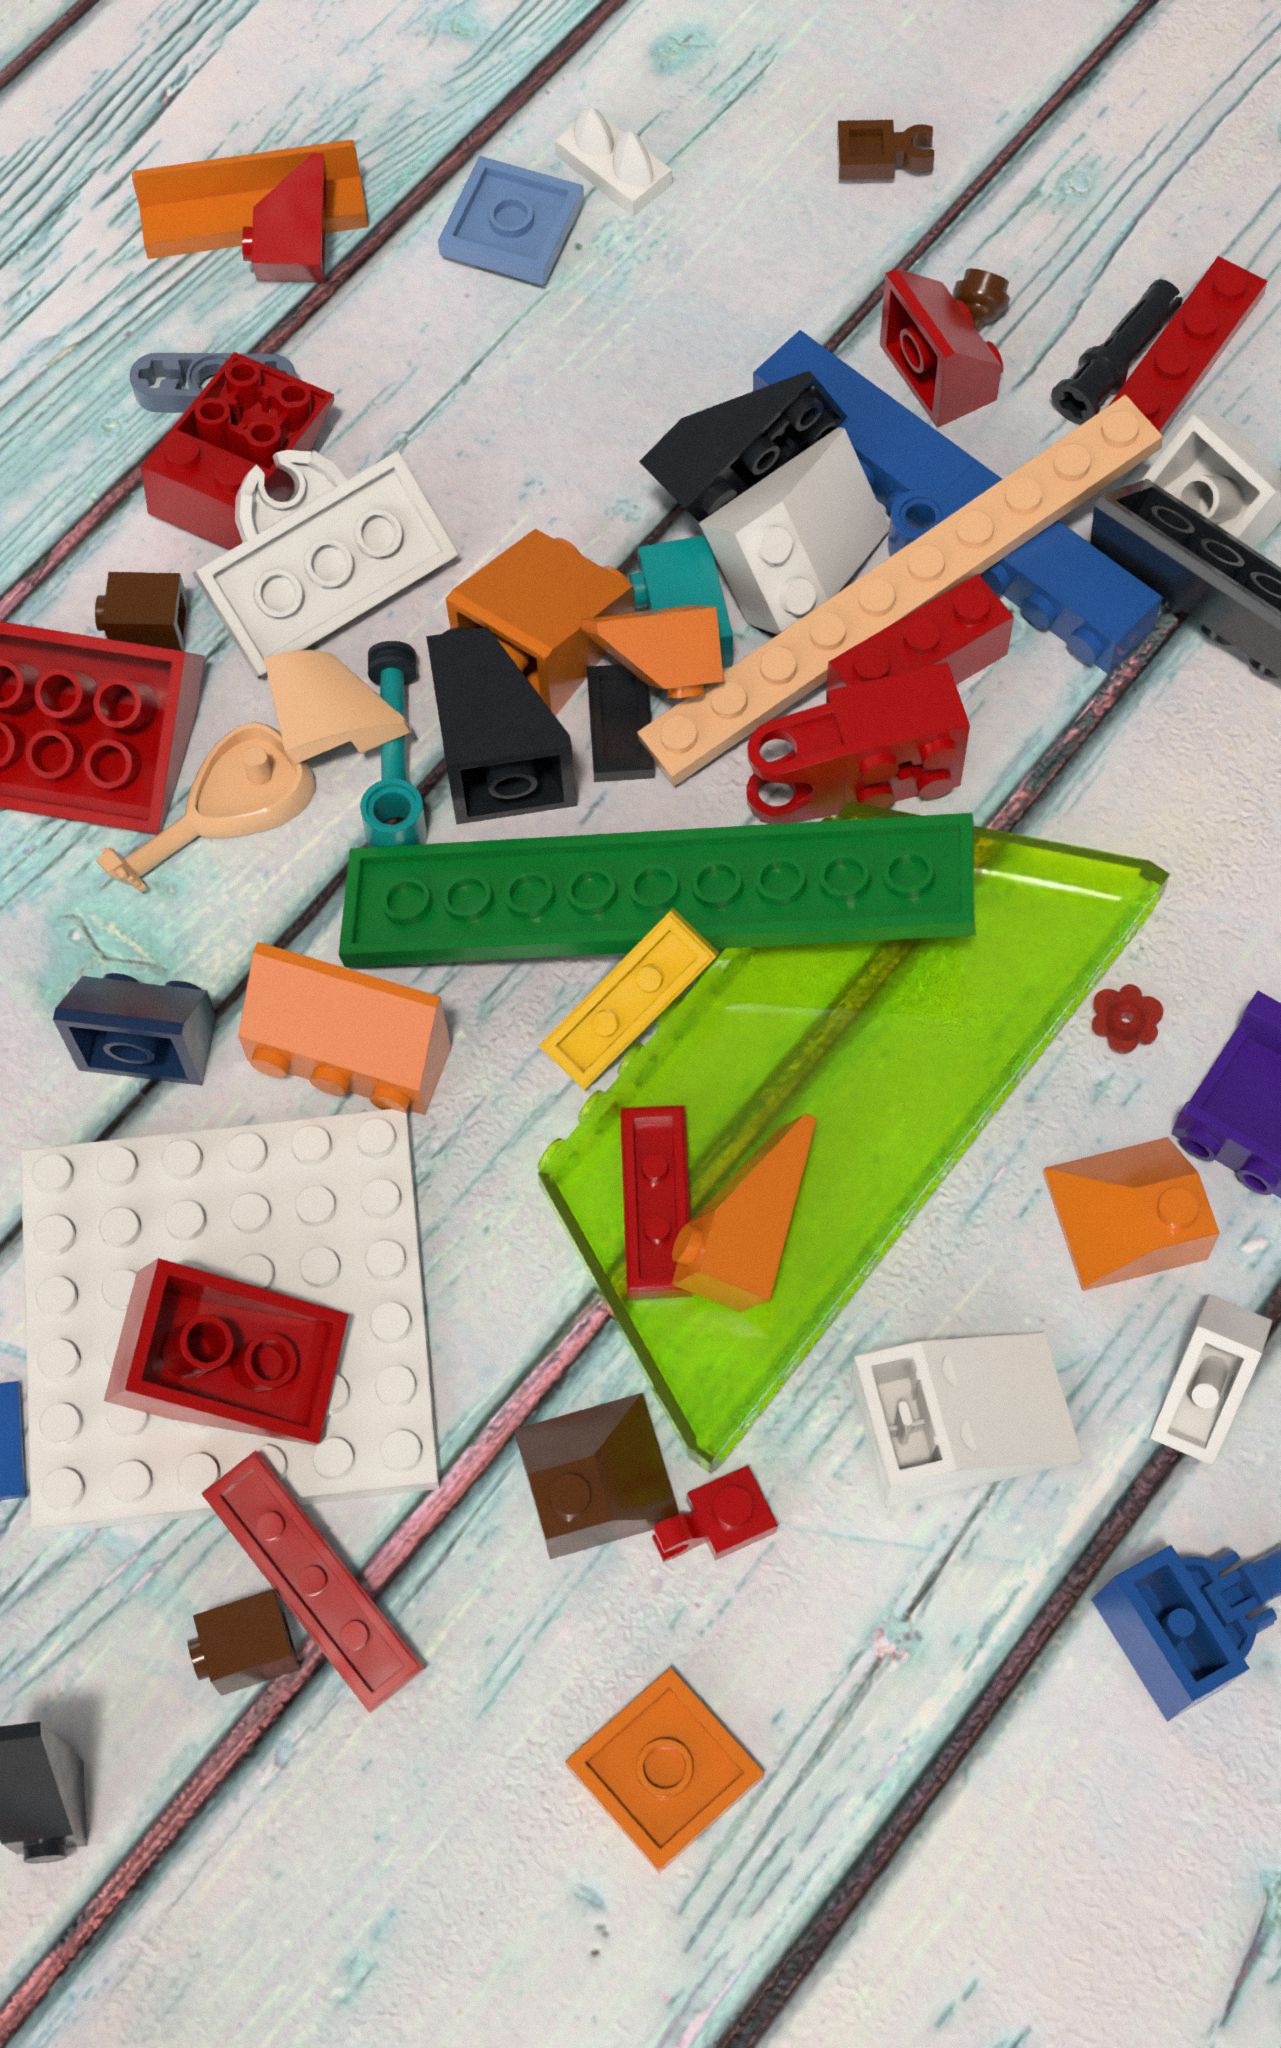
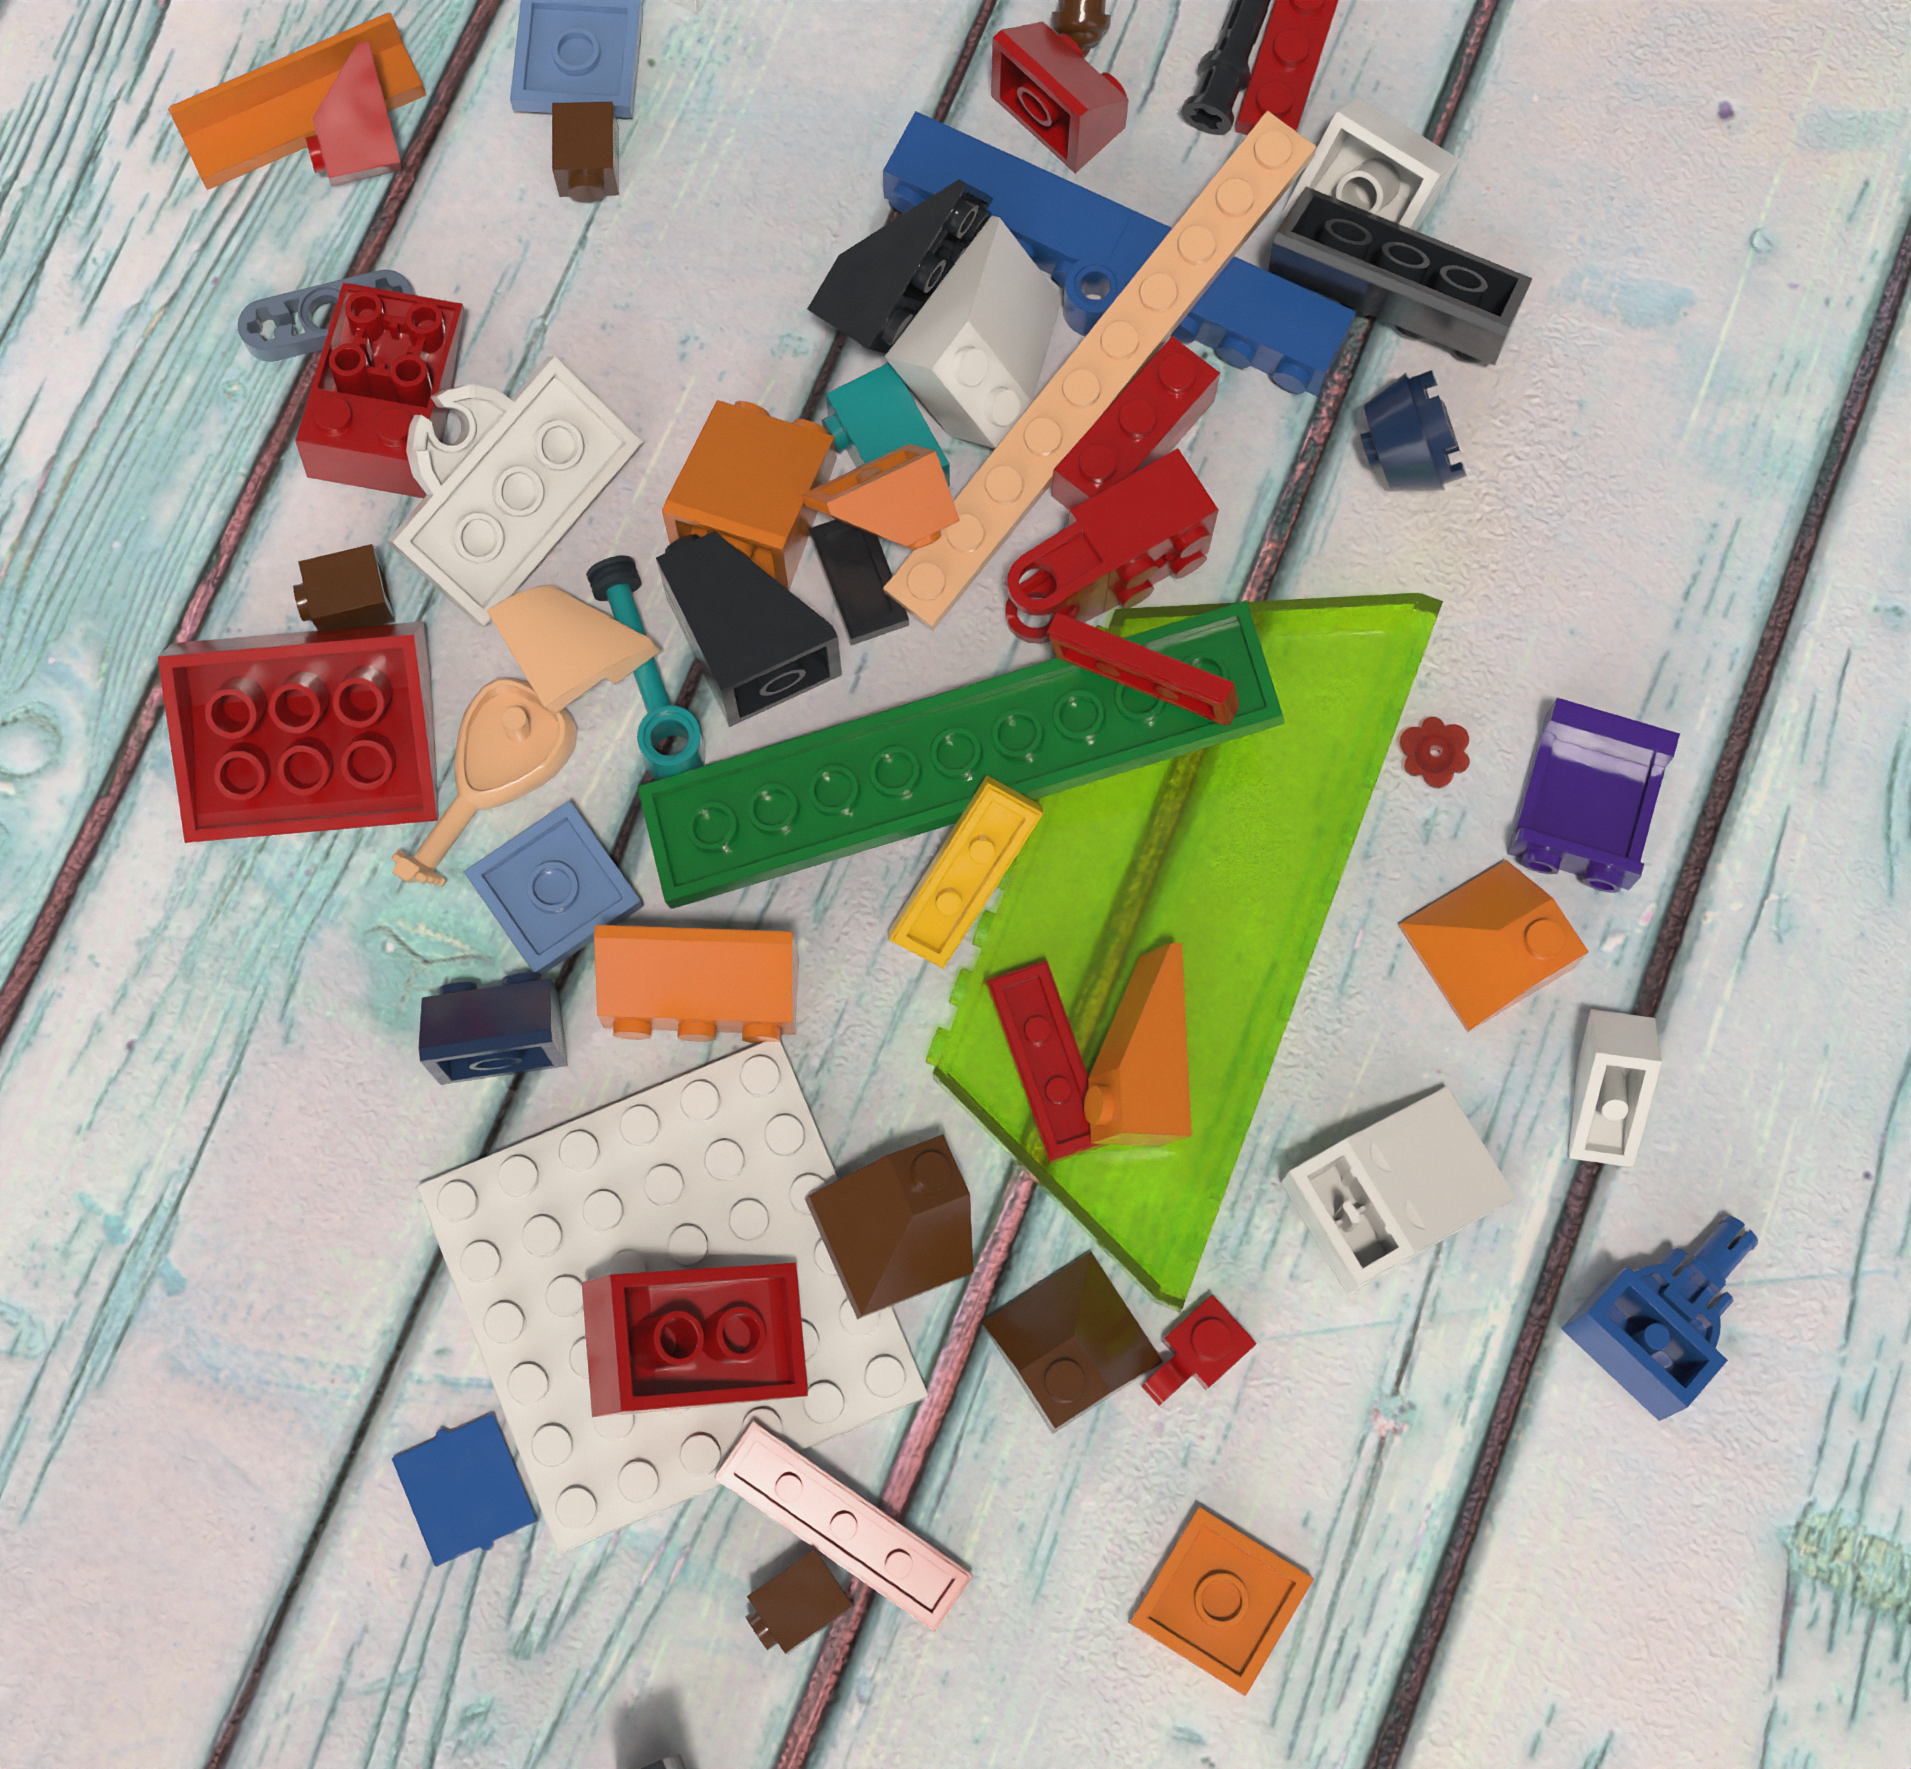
camera: 20 degrees left, 10 degrees up
(232, 908) = (553, 888): none -> medium blue plate
(458, 1309) = (897, 1226): none -> reddish brown slope
(491, 298) = (585, 150): none -> reddish brown brick
(851, 845) = (1143, 669): none -> red tile
(1185, 720) = (1411, 436): none -> dark blue cone

